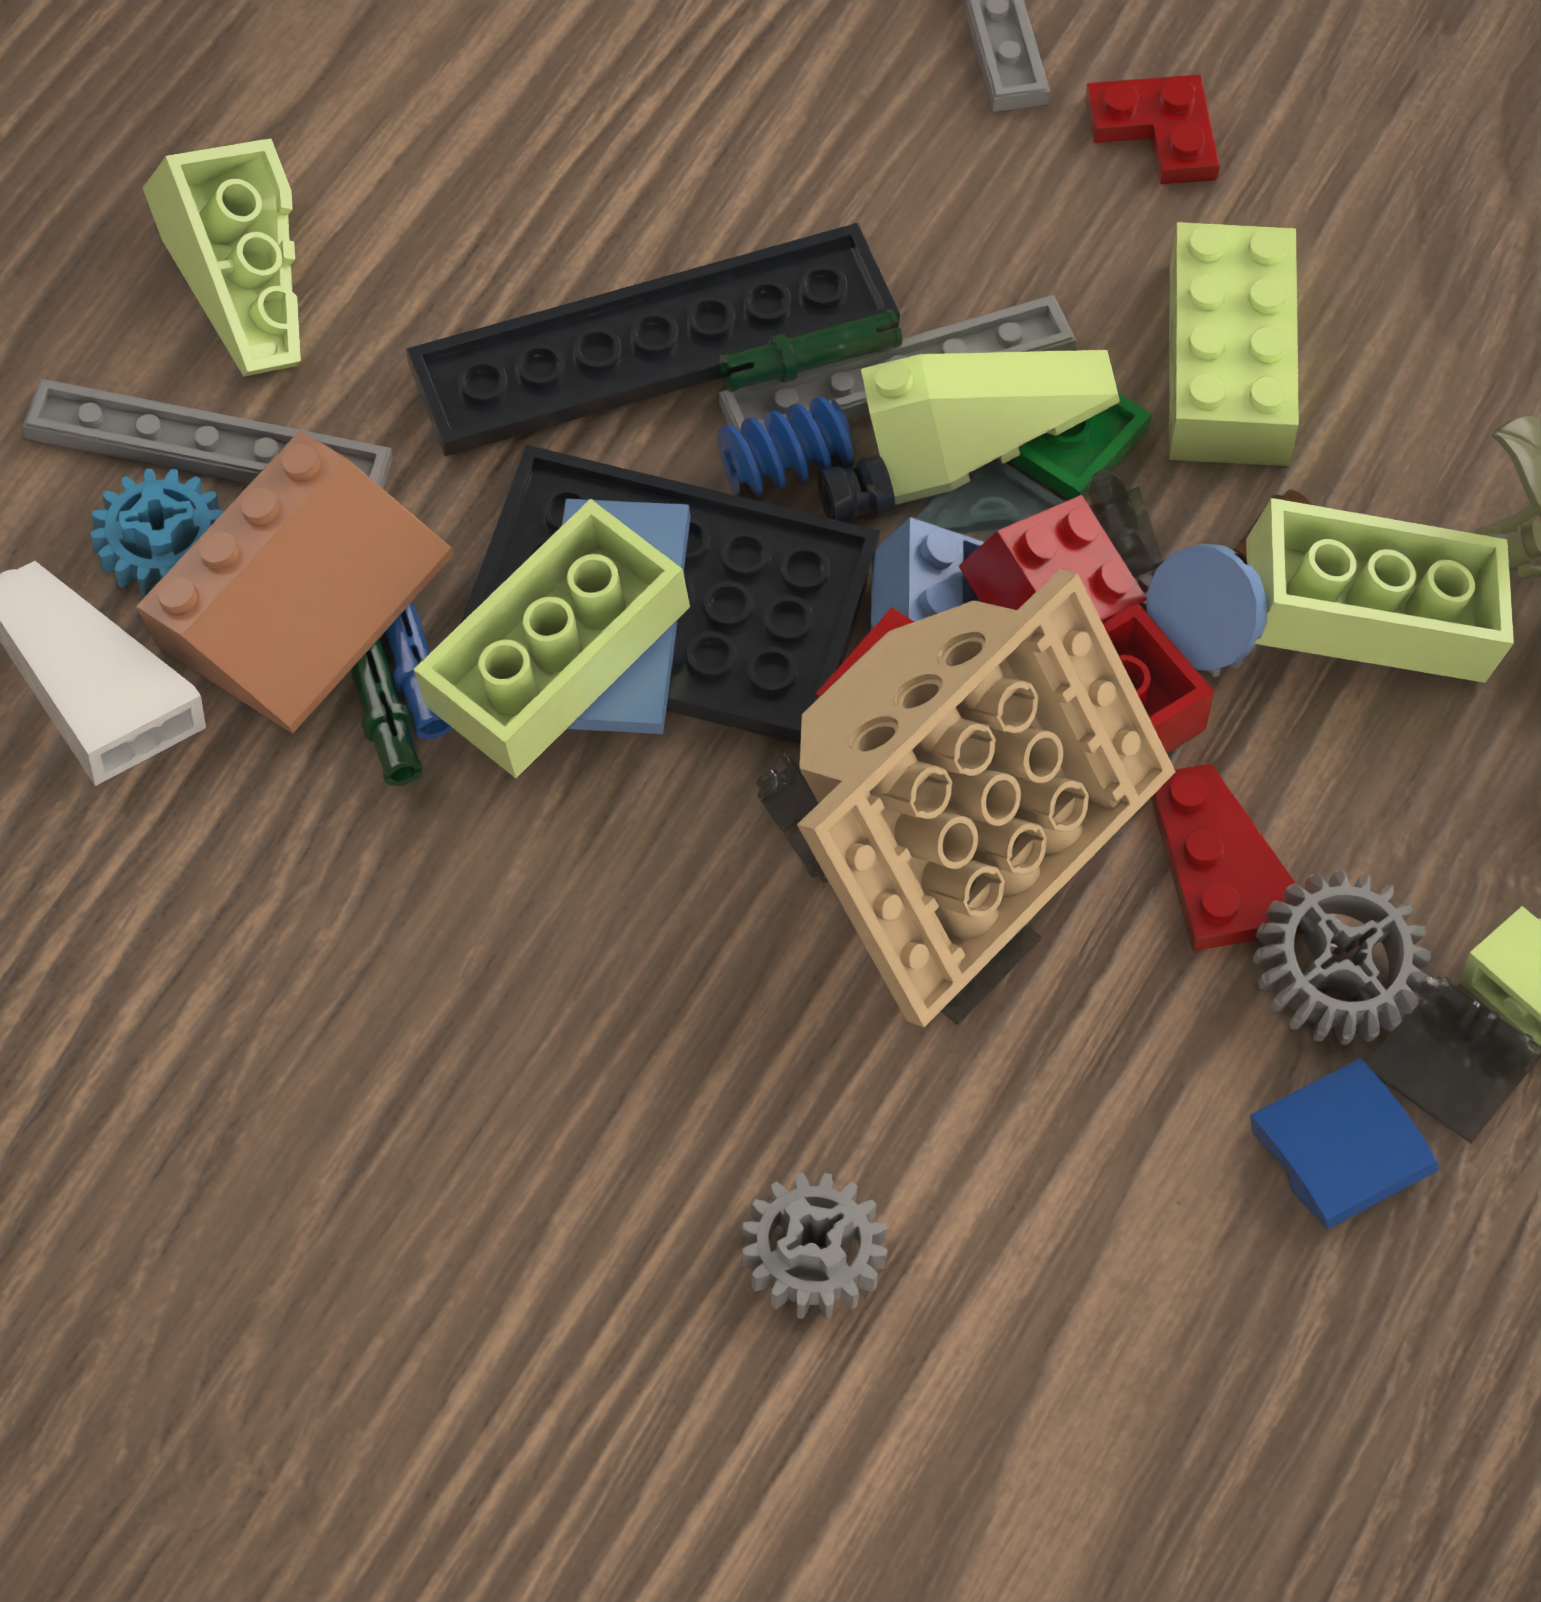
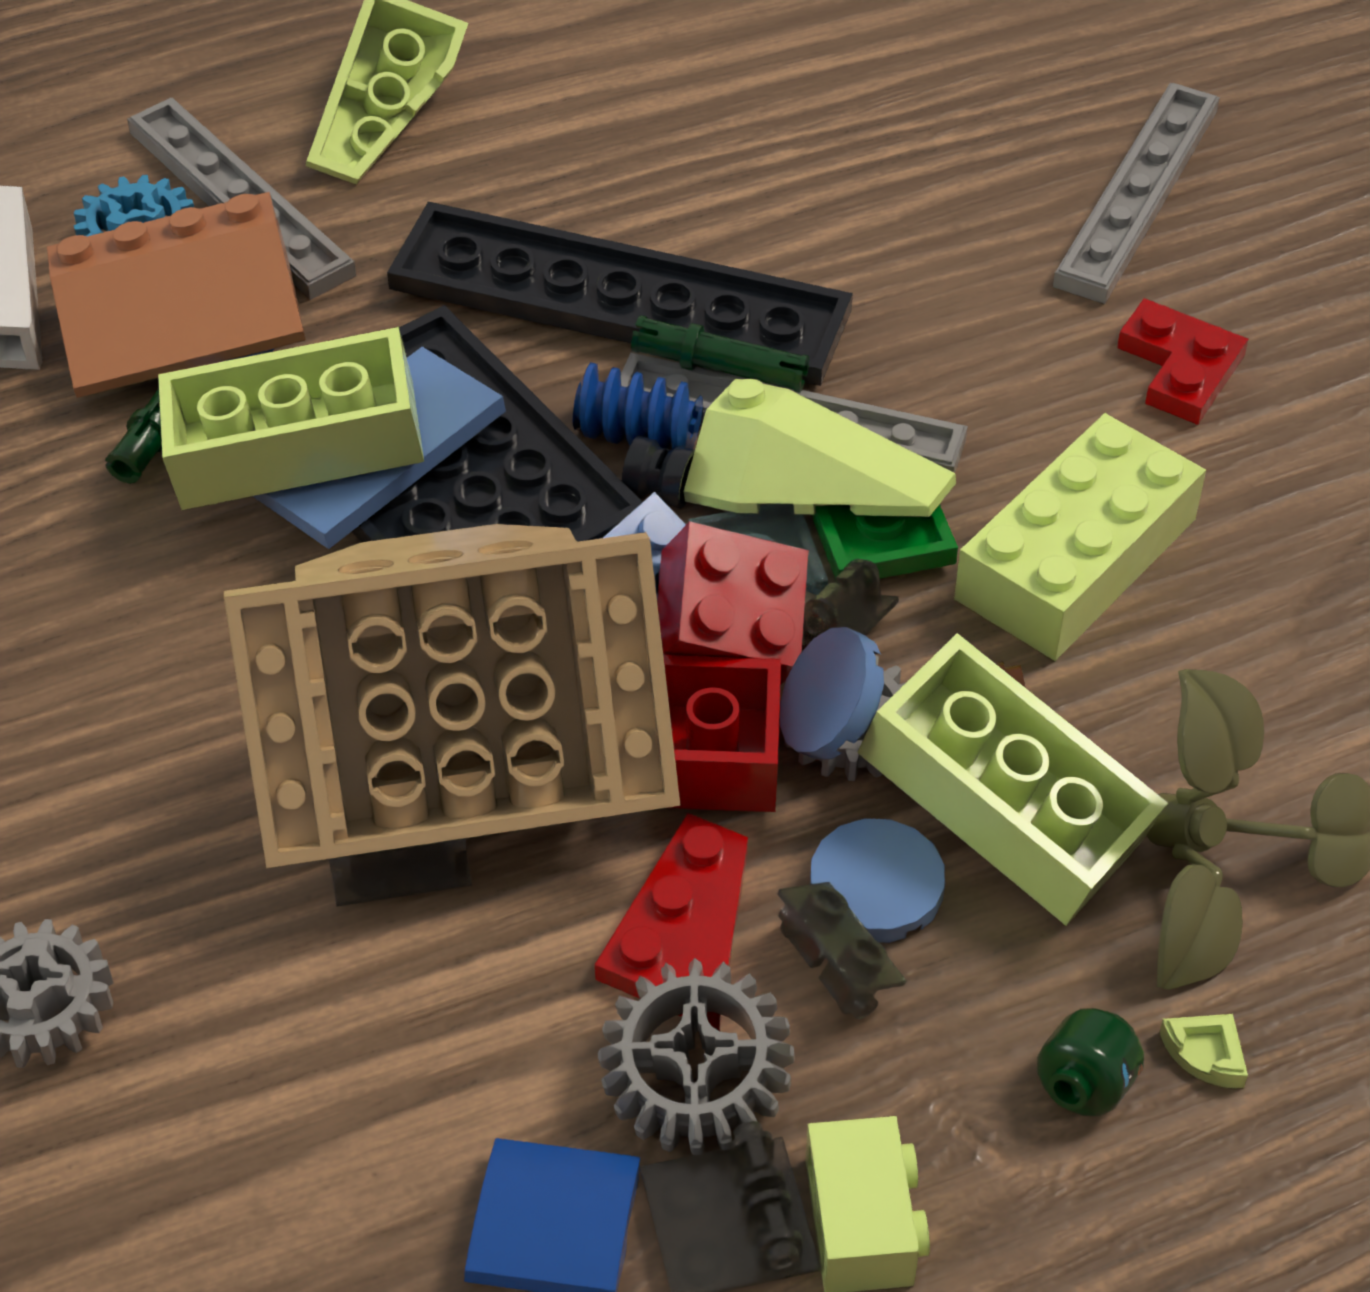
camera: 40 degrees right, 10 degrees down
(1327, 735) = (884, 873): none -> medium blue tile
(1382, 812) = (824, 927): none -> clear smoke hinge

